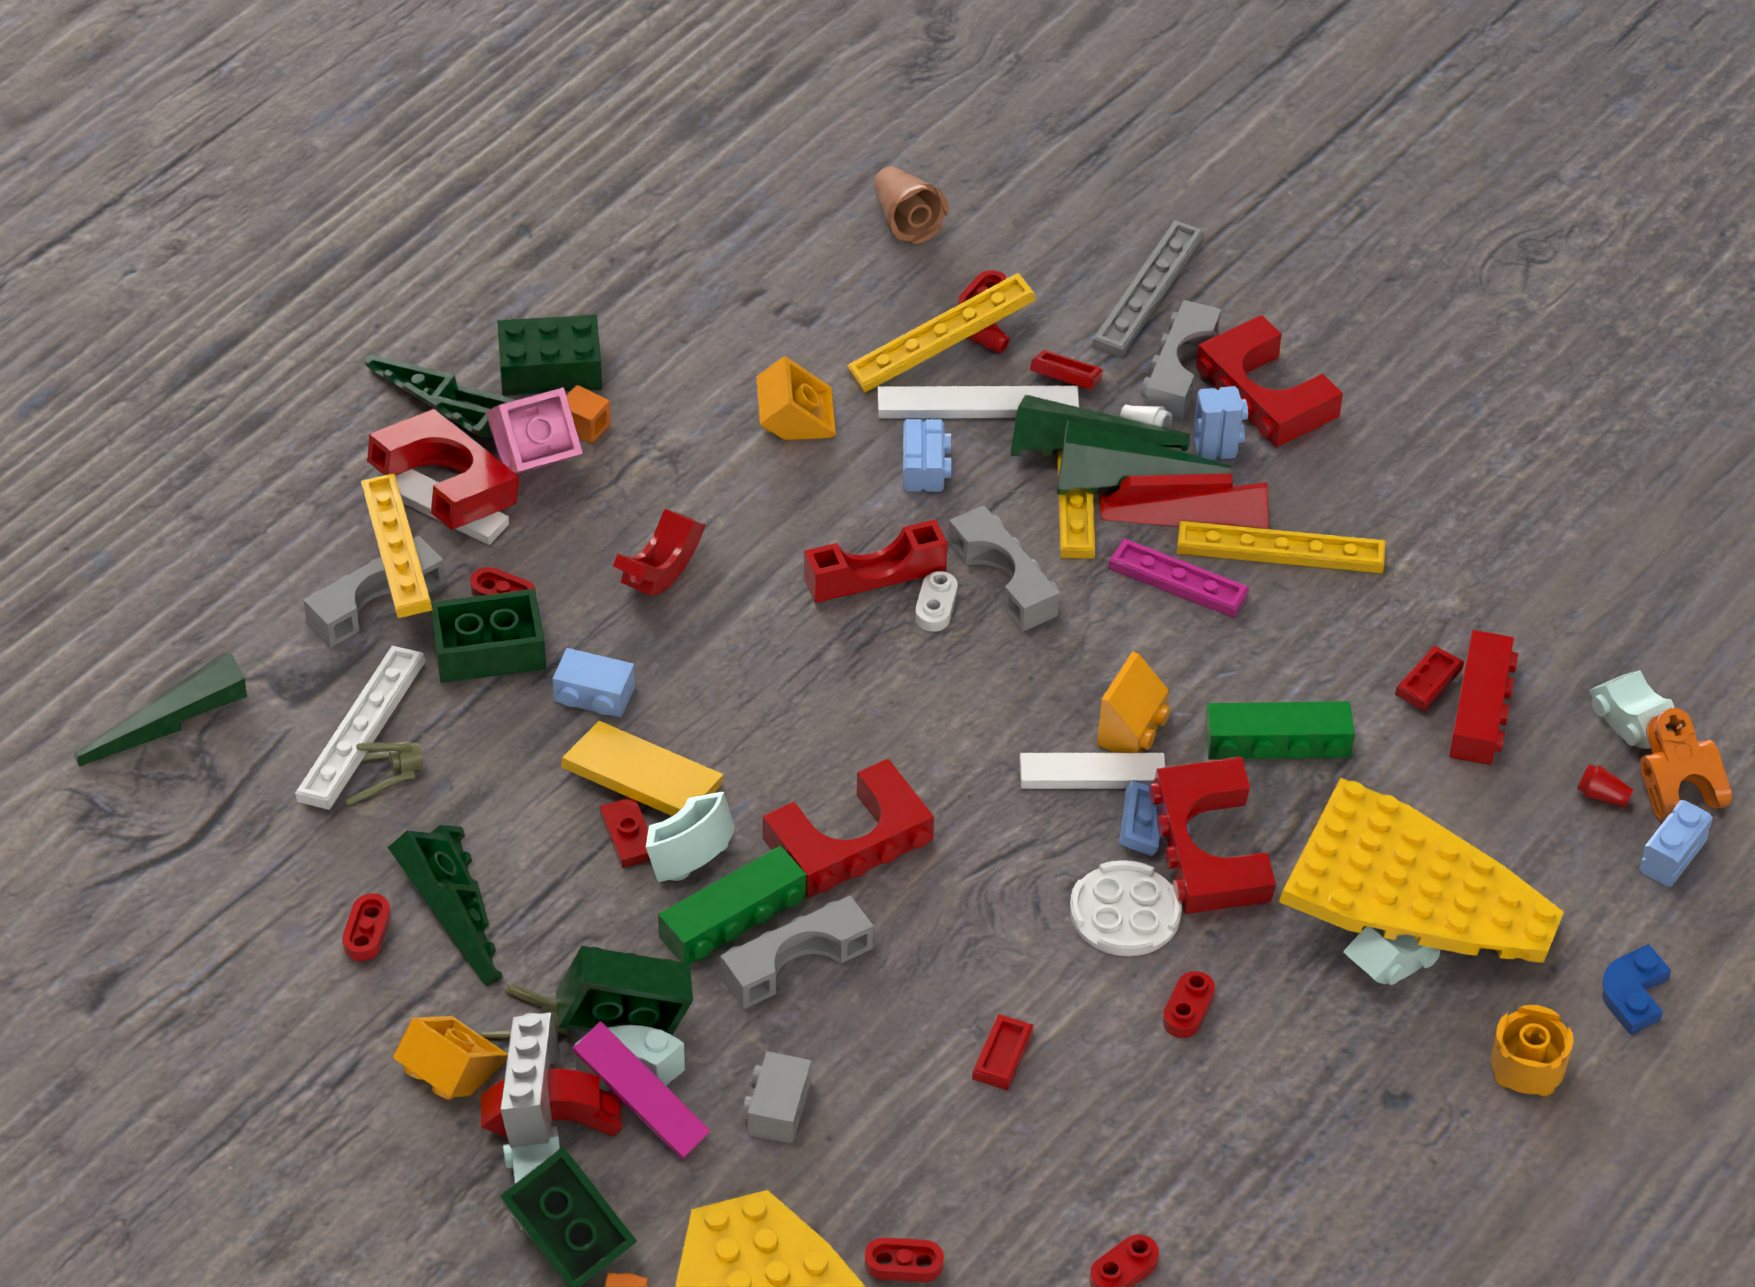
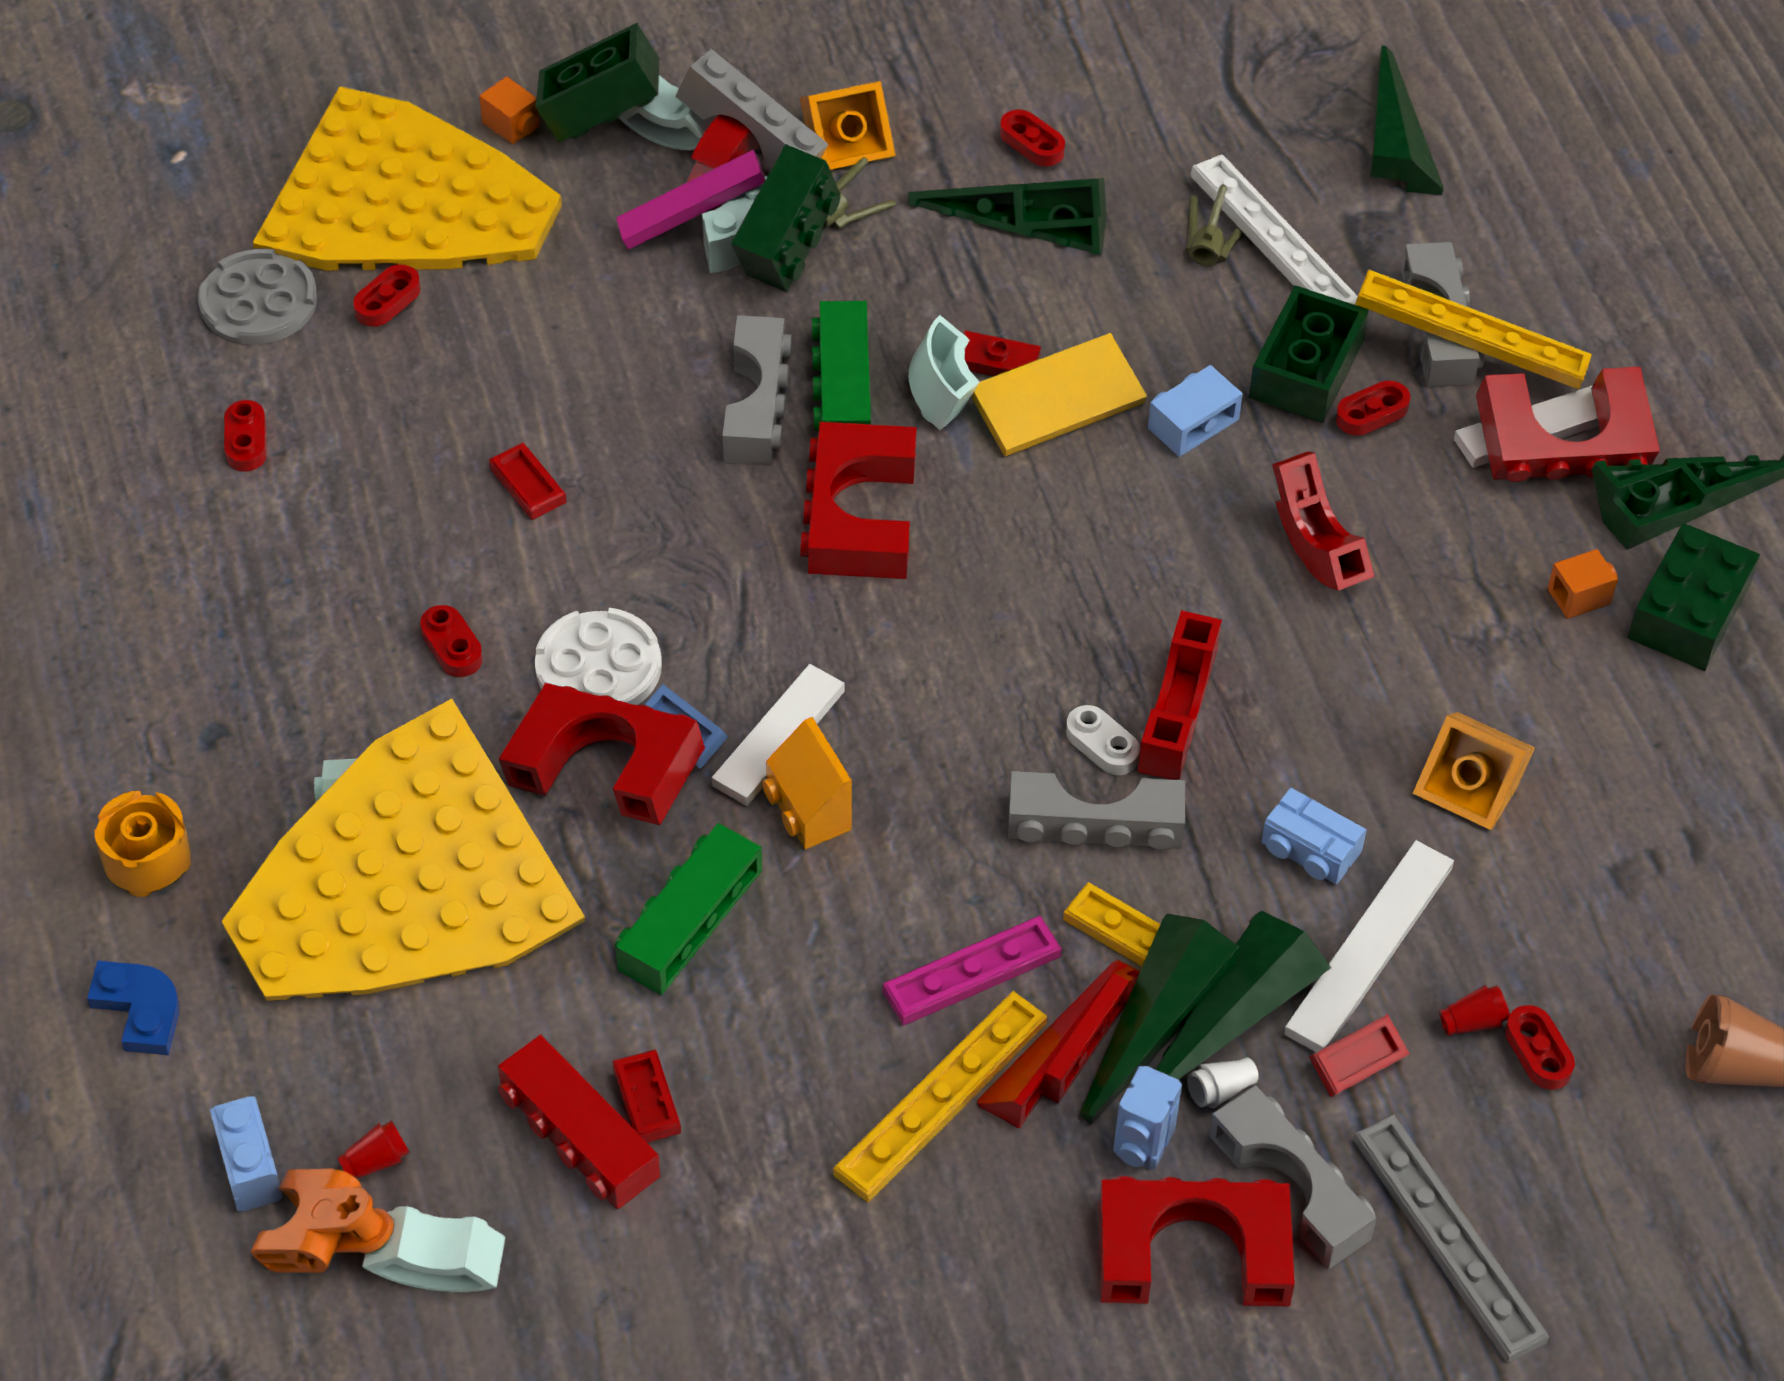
camera: 125 degrees right, 5 degrees up
(534, 431) = (1554, 492): bright pink brick -> none
(778, 1097) = (614, 298): light grey brick -> none
(941, 332) = (1487, 951): yellow tile -> none

